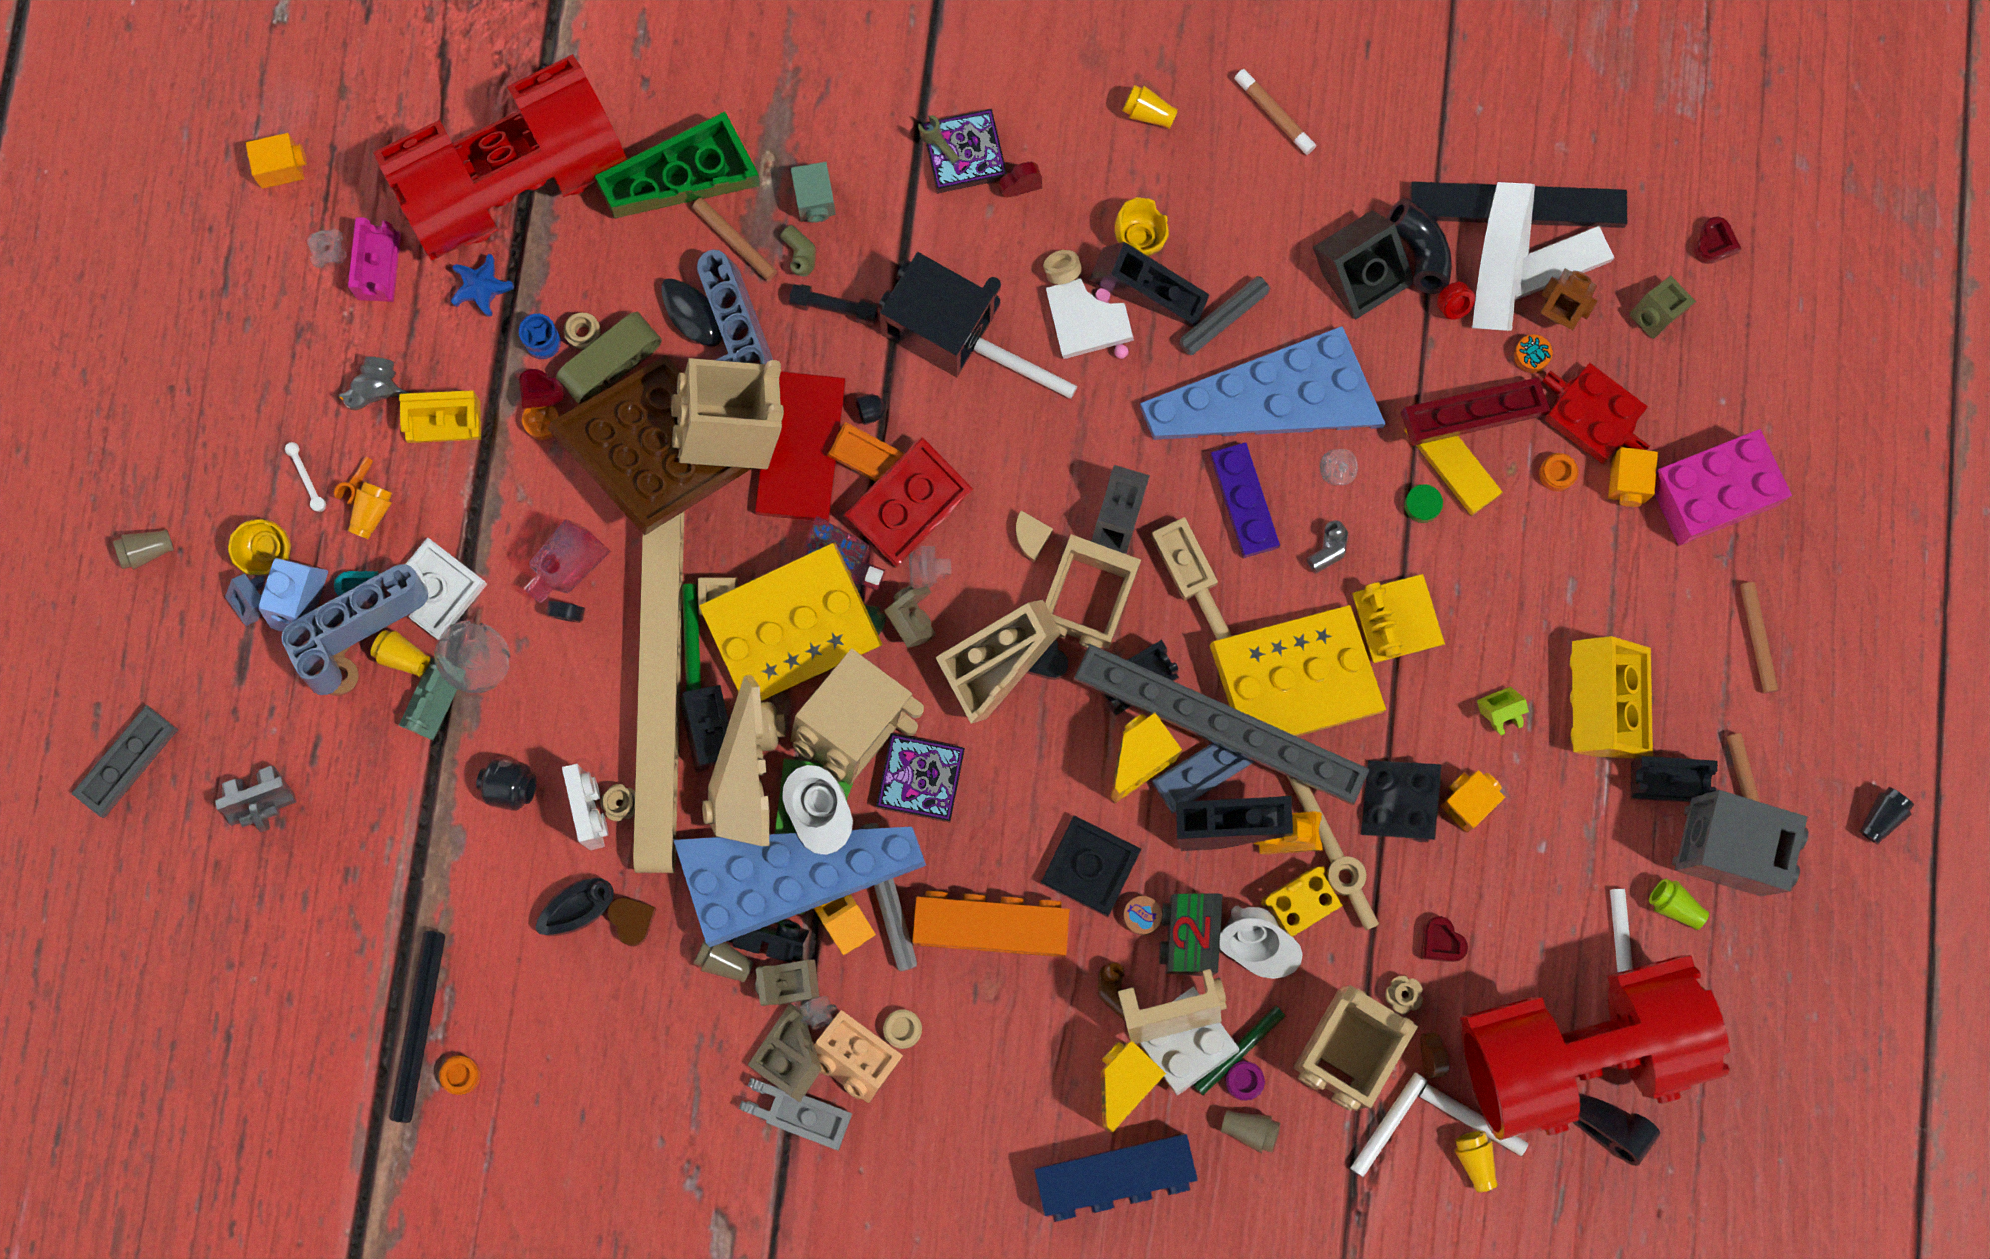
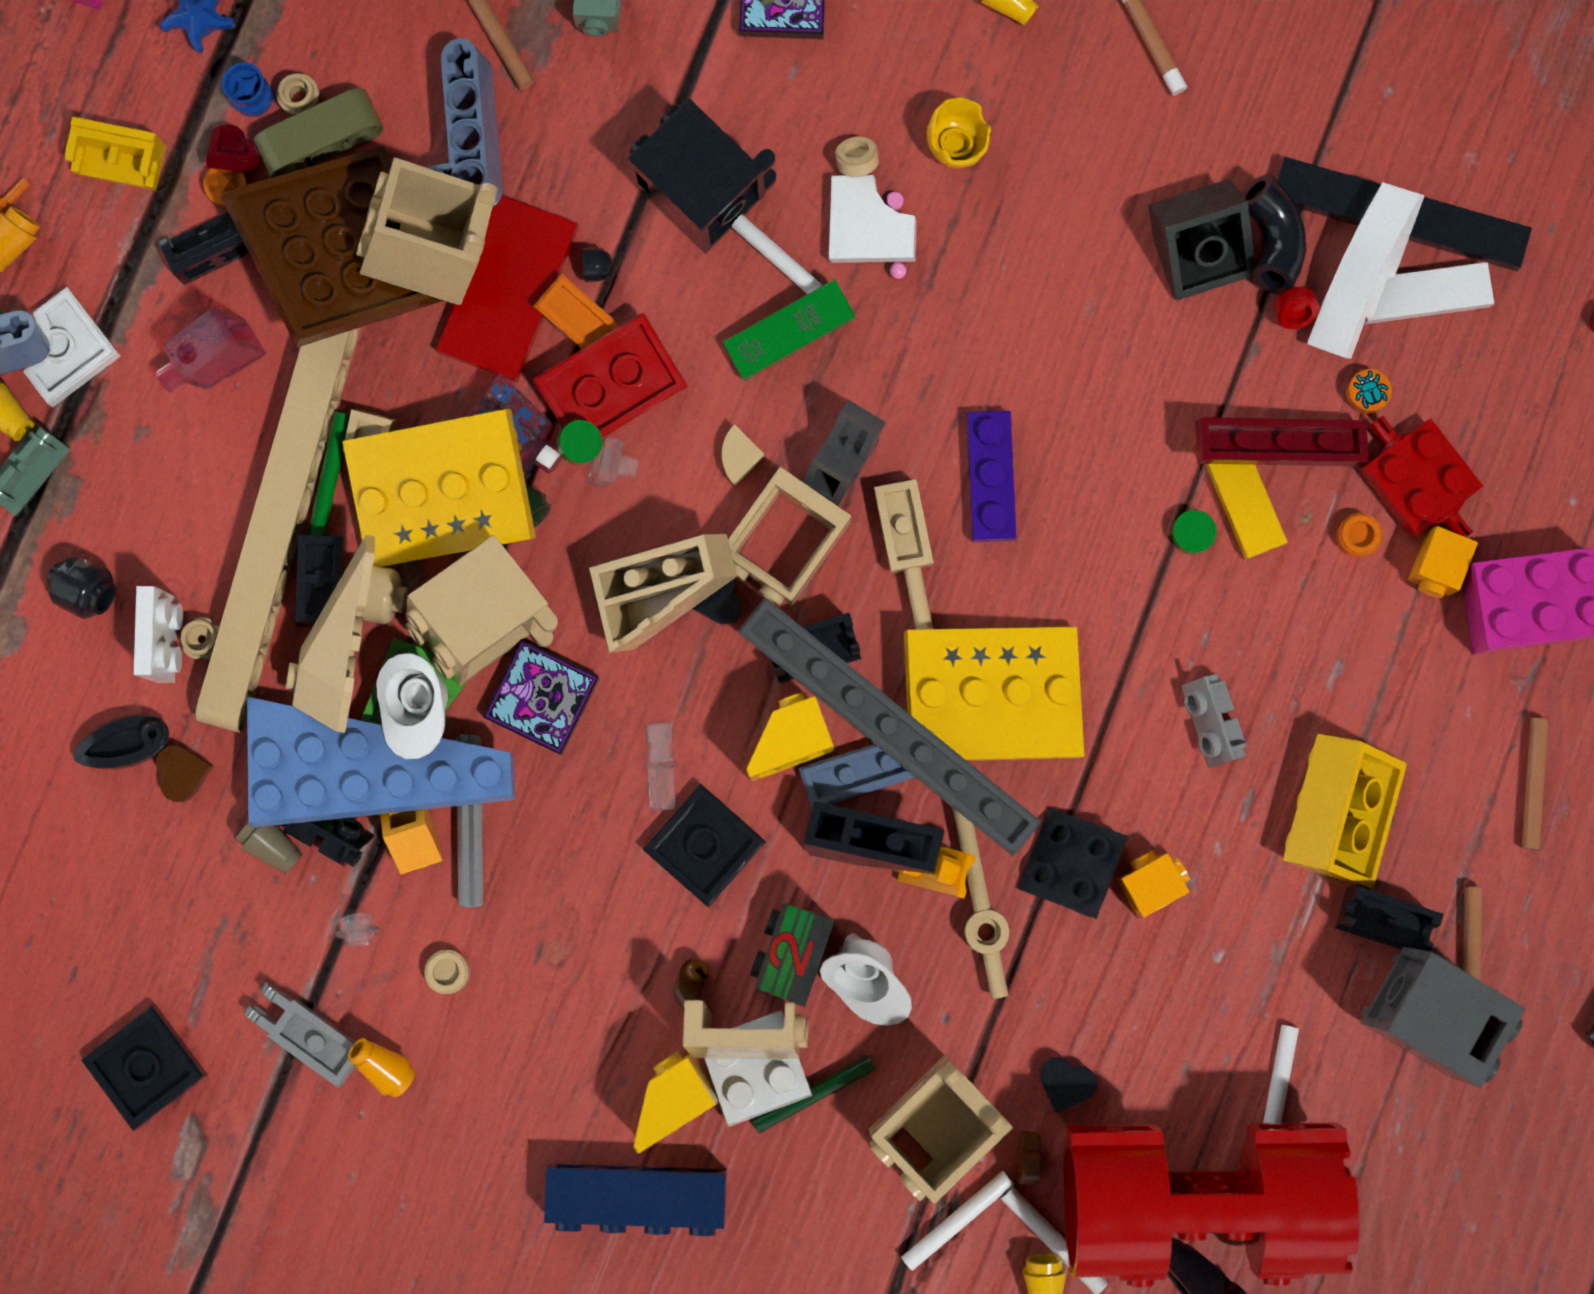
camera: 20 degrees right, 5 degrees up
(372, 384) = (48, 98): dark grey animal -> none
(472, 657) = (79, 434): clear tile -> none
(539, 473) = (203, 249): none -> black hinge
(565, 611) = (195, 409): black tile -> none
(665, 1179) = (144, 1067): none -> black tile
(690, 312) = (422, 103): black arm -> none
(787, 983) = (331, 888): dark tan bracket -> none
(788, 1055) = (310, 970): dark tan wing -> none
(803, 297) = (556, 119): black bar -> none
(804, 251) = (569, 67): olive arm -> none
(855, 1057) = (384, 988): light nougat bracket -> none
(870, 1122) = (383, 1068): none -> light orange cone
(897, 557) = (579, 442): none -> green tile
(908, 618) = (574, 513): dark tan bracket -> none
(991, 926) = (573, 885): orange brick -> none
(1022, 179) = (838, 44): dark red tile -> none
(1036, 809) = (660, 766): none -> clear axle
(1046, 421) = (789, 330): none -> green tile
(1142, 915) = (746, 915): nougat tile -> none
(1148, 284) = (949, 201): black slope -> none
(1224, 315) = (1026, 258): dark grey axle -> none
(1245, 1081) = (810, 1129): magenta tile -> none
(1252, 1129) = (803, 1187): dark tan cone -> none
(1282, 392) = (1072, 364): medium blue wing -> none
(1302, 900) = (928, 944): yellow piece -> none
(1333, 547) = (1077, 555): flat silver arm -> none
(1338, 467) = (1108, 466): clear tile -> none
(1398, 618) = (1127, 655): yellow hinge -> none
(1400, 1004) = (1010, 1070): tan plate -> none
(1442, 942) = (1074, 1033): dark red tile -> none
(1446, 985) = (1066, 1083): none -> black tile
(1491, 666) = (1205, 703): none -> light grey hinge
(1502, 707) = (1218, 787): lime tile -> none
(1569, 298) = (1427, 338): dark orange brick -> none
(1661, 307) = (1533, 374): olive bracket -> none
(1676, 903) = (1351, 1060): lime cone -> none

